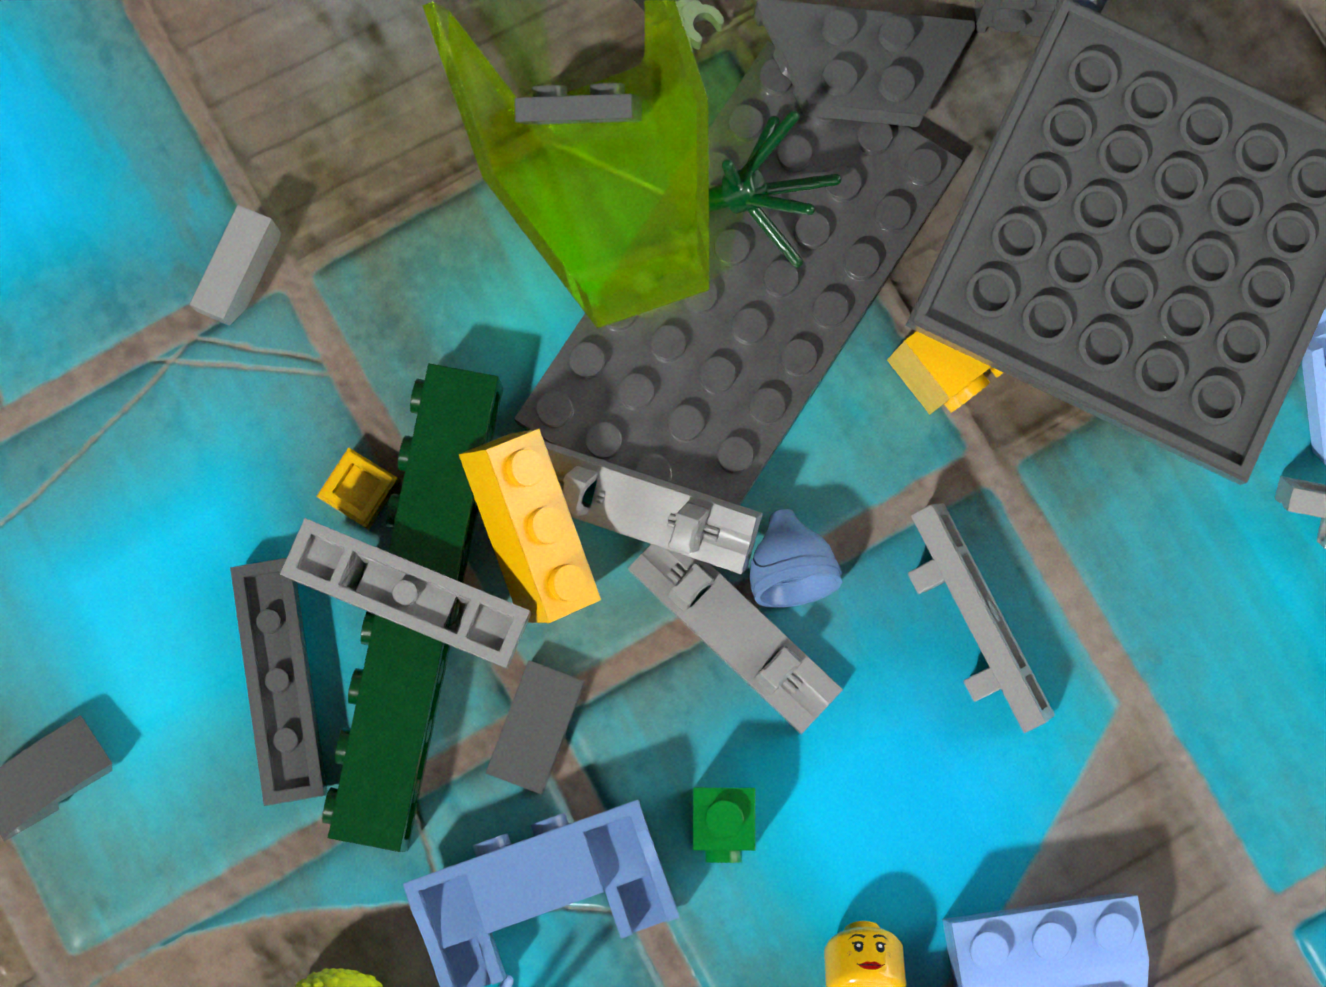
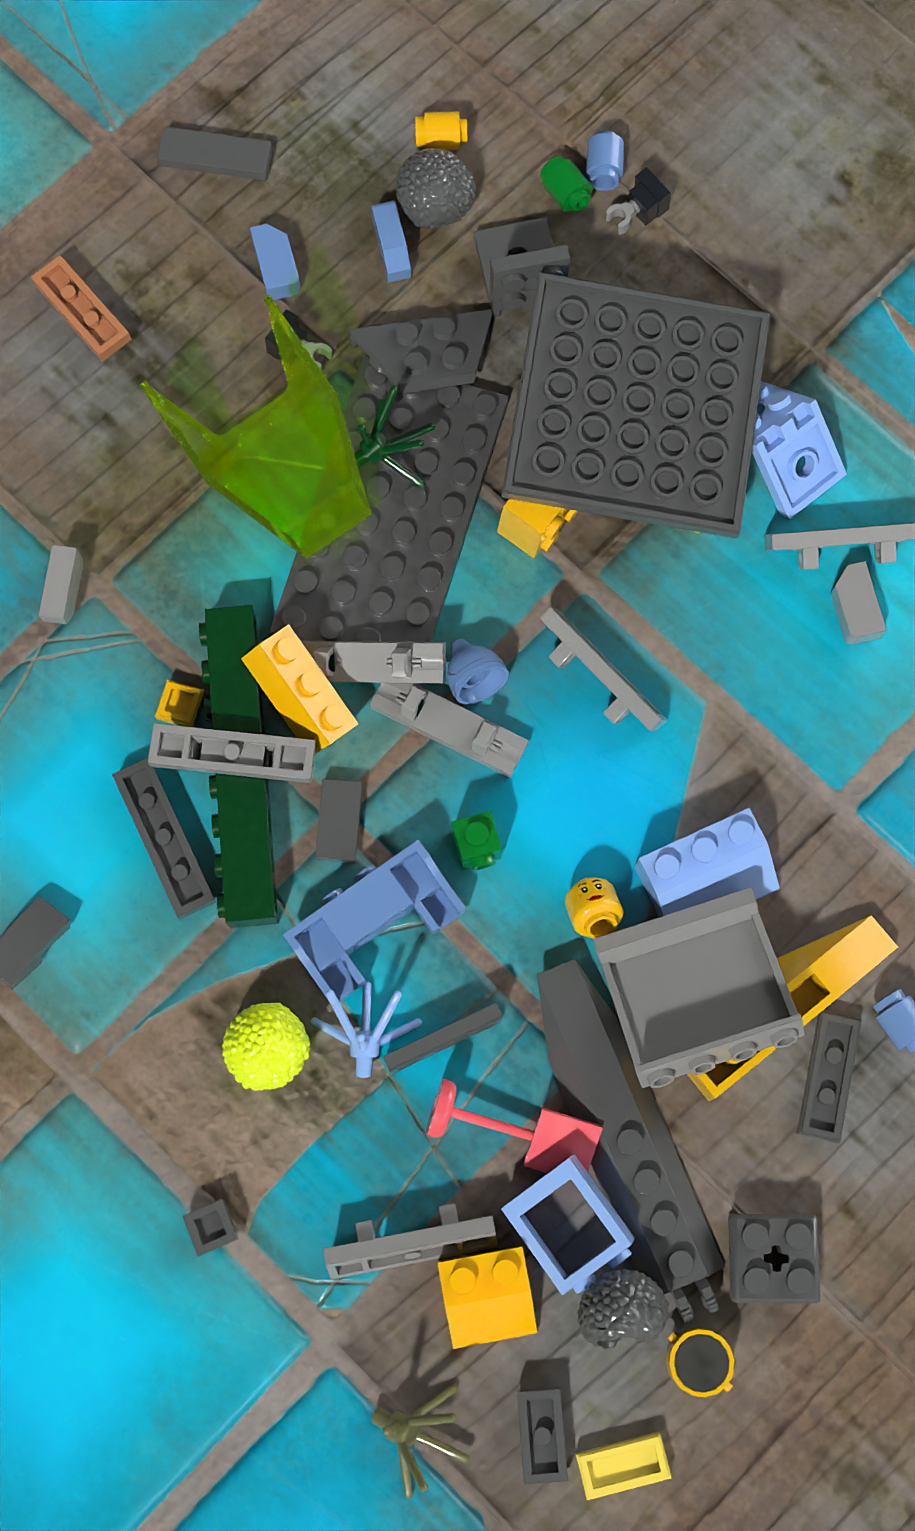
camera: 20 degrees left, 5 degrees down
(553, 106) = (241, 429): dark grey plate -> none

